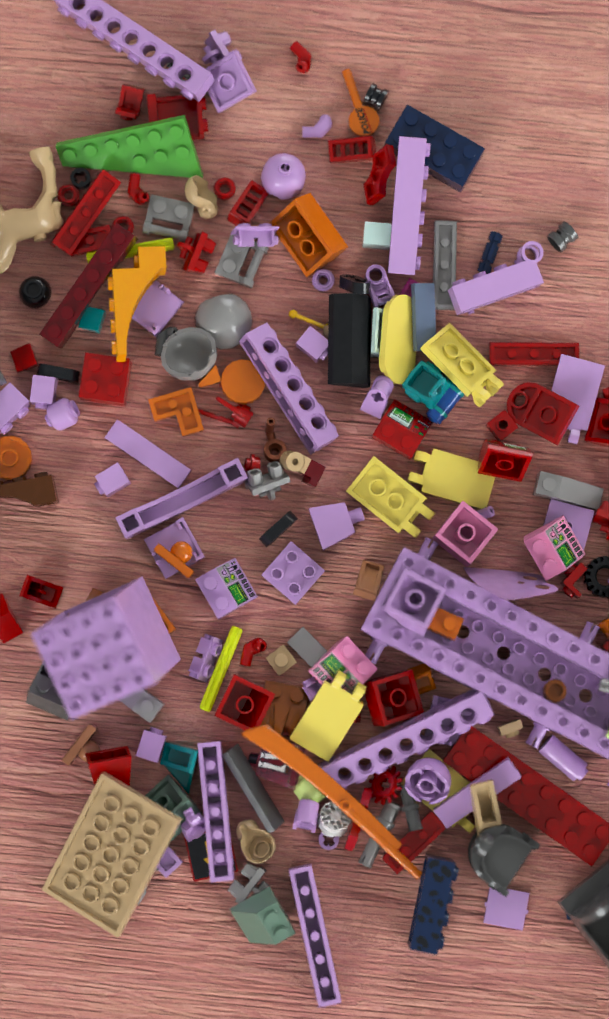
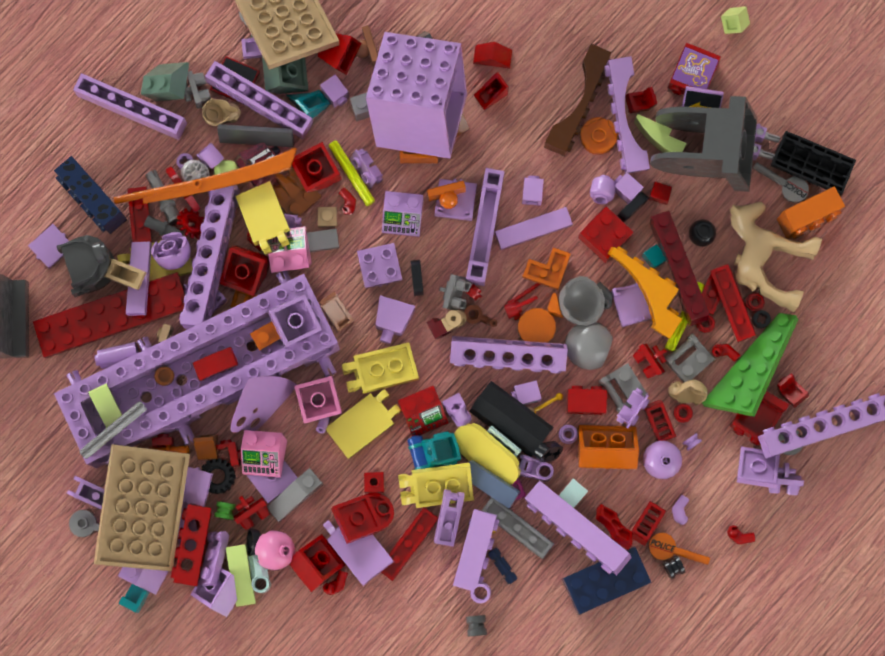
camera: 125 degrees right, 5 degrees down
(193, 826) = (261, 78): lavender plate -> none
(246, 160) = (692, 441): none -> lavender bush
(280, 284) = (587, 401): none -> red brick
(484, 331) = (449, 518): none -> lavender plate
(504, 460) = (349, 464): red slope -> none
(507, 650) = (215, 363): none -> red slope
(585, 607) = (206, 446): none -> dark orange slope

